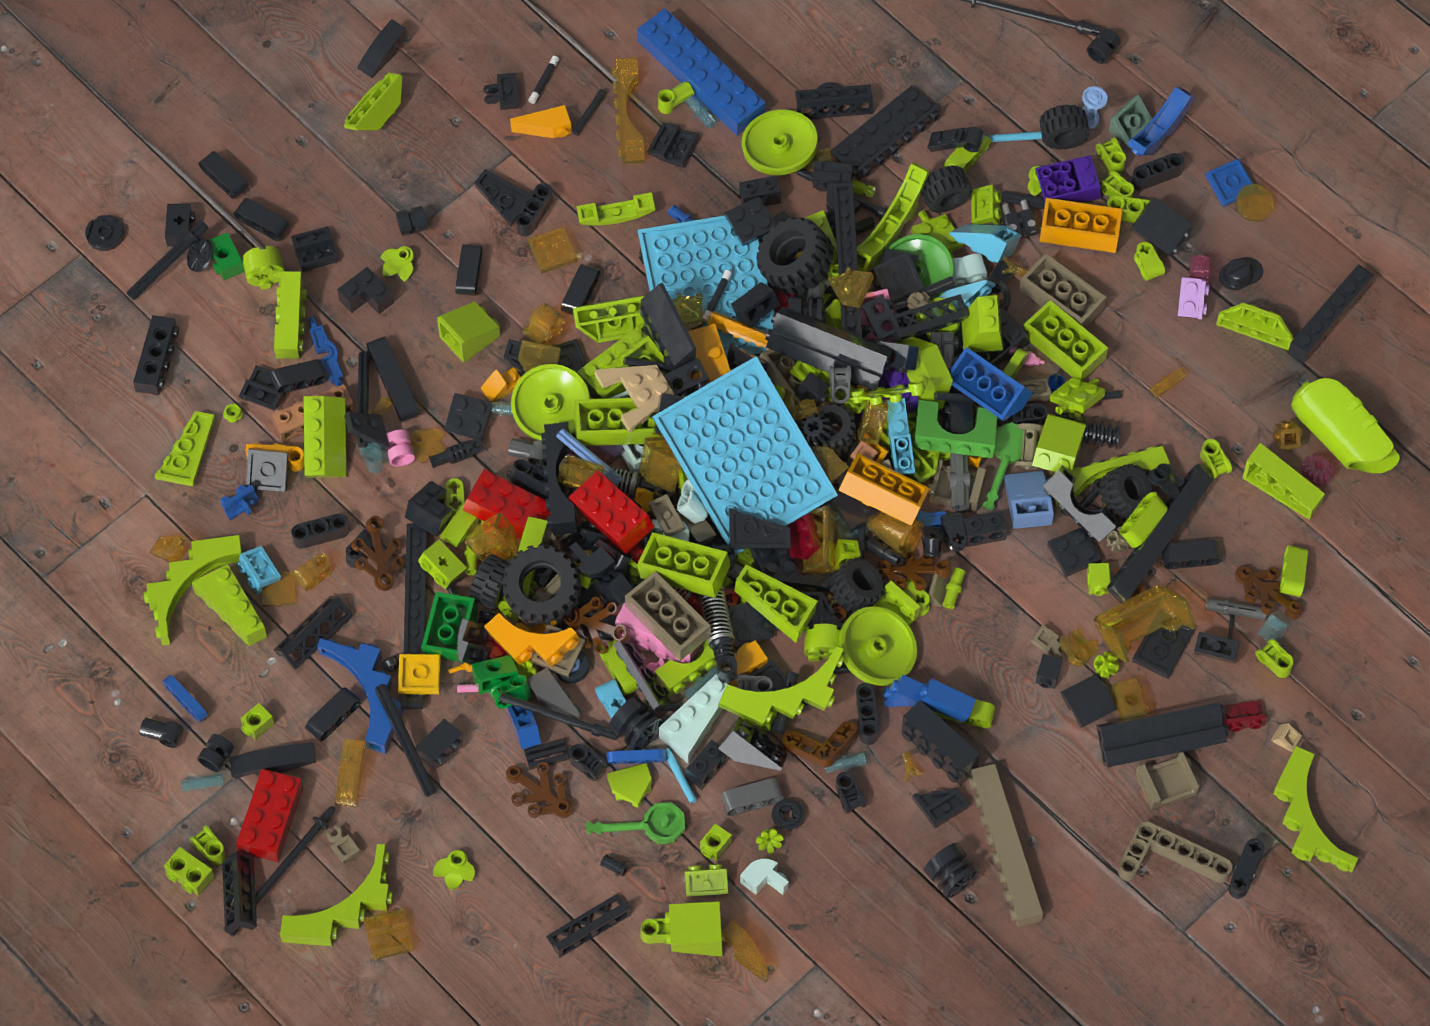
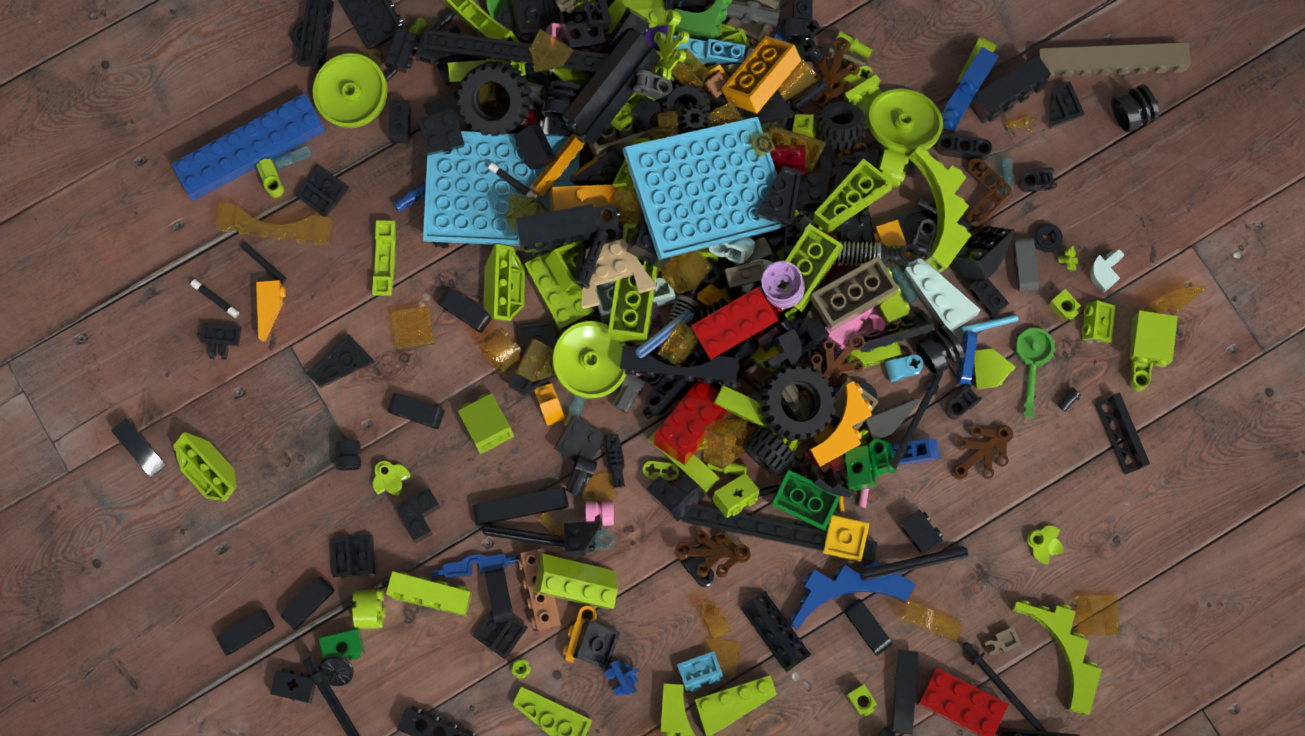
camera: 75 degrees left, 15 degrees up
(314, 538) = (667, 596): black beam -> none
(391, 663) = (824, 564): black hinge -> none
(437, 422) = (582, 471): none -> black piece
(537, 202) = (368, 343): black beam -> none
(543, 747) = (944, 422): black tile -> none
(634, 365) = (589, 268): none -> black pin
(654, 536) = (778, 274): none -> lavender wheel
(807, 503) = (762, 144): none -> clear yellow tile

